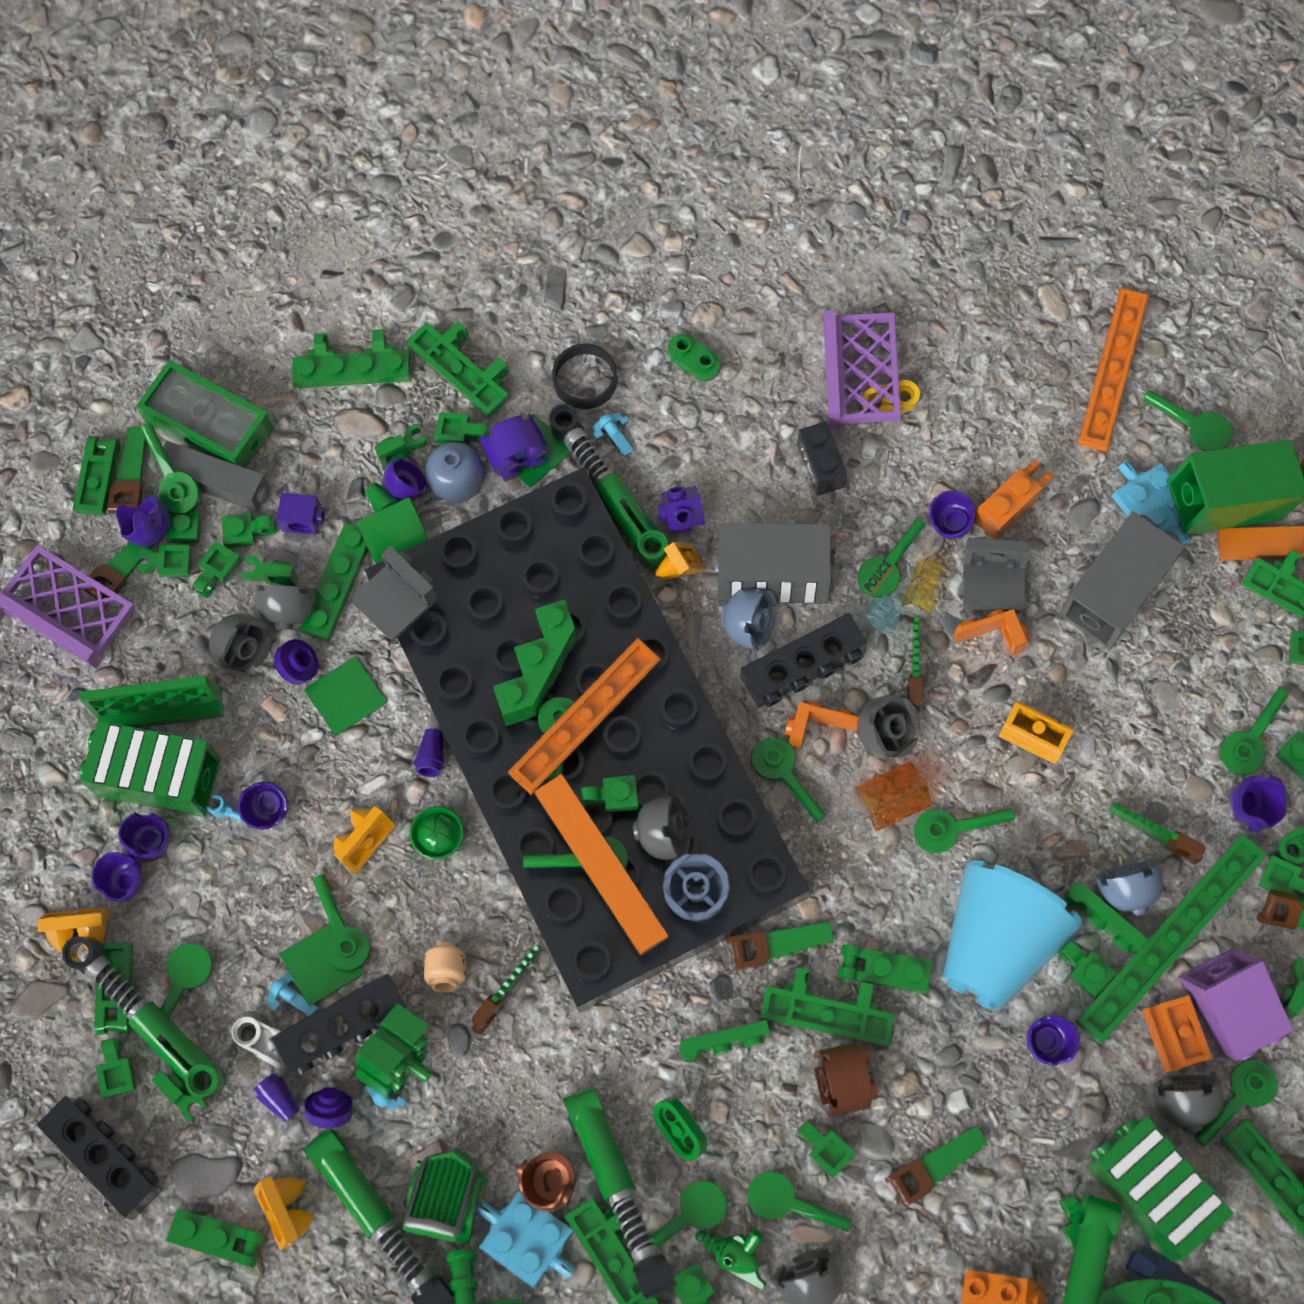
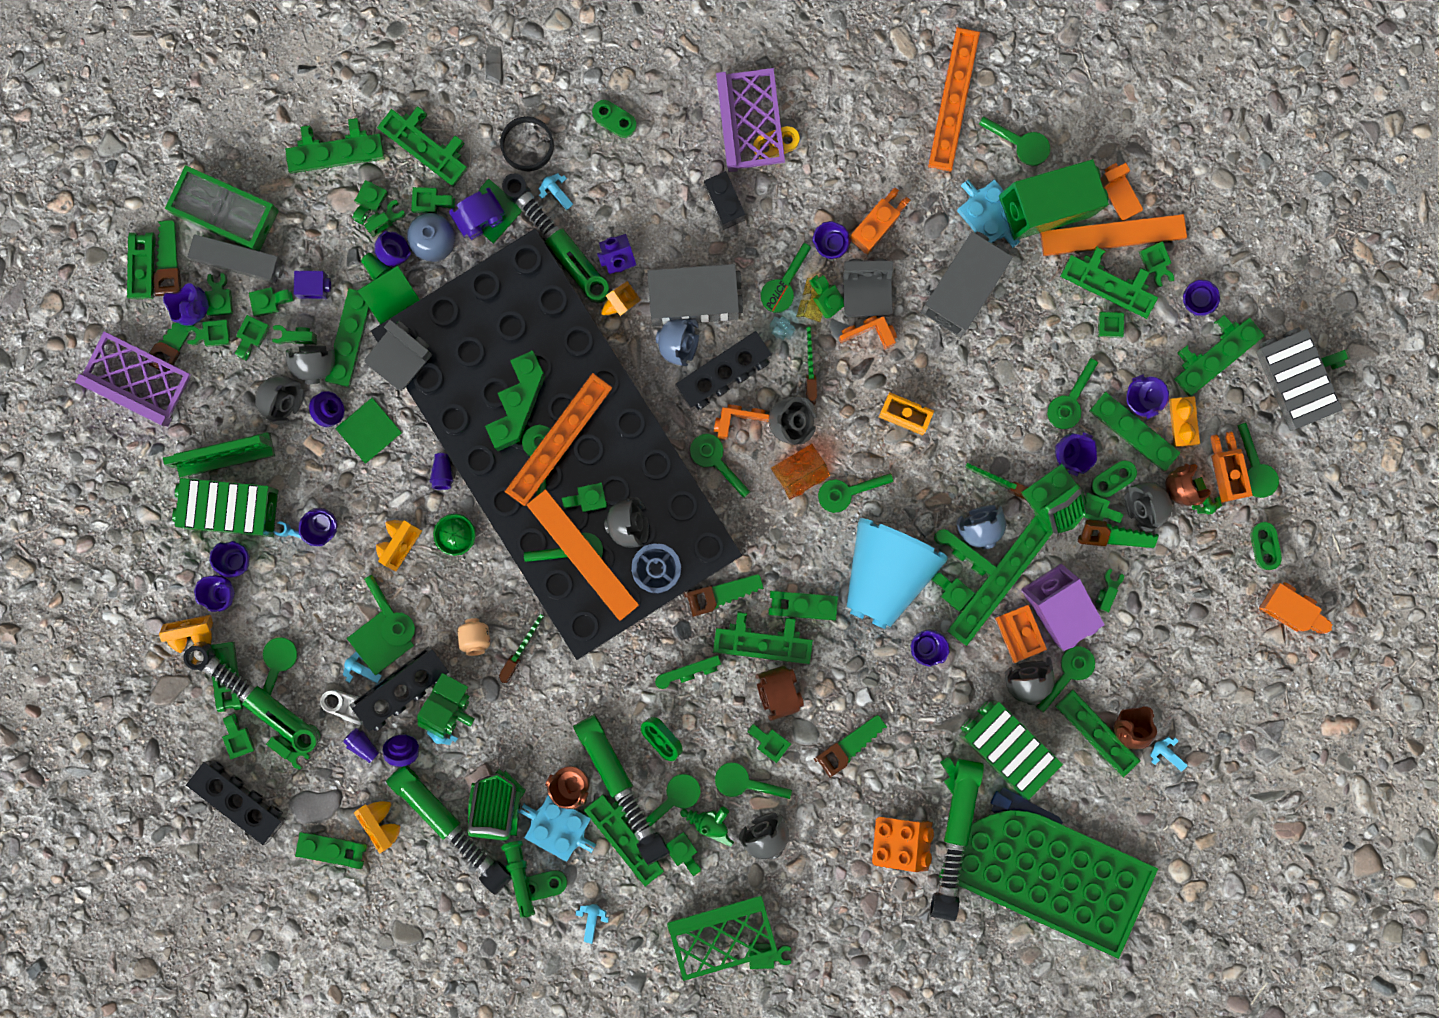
camera: 10 degrees left, 15 degrees up
(177, 489) = (209, 274): green piece -> none
(384, 423) = (370, 199): none -> green plate
(944, 584) = (828, 298): none -> green plate
(1232, 860) = (1057, 501): none -> green piece

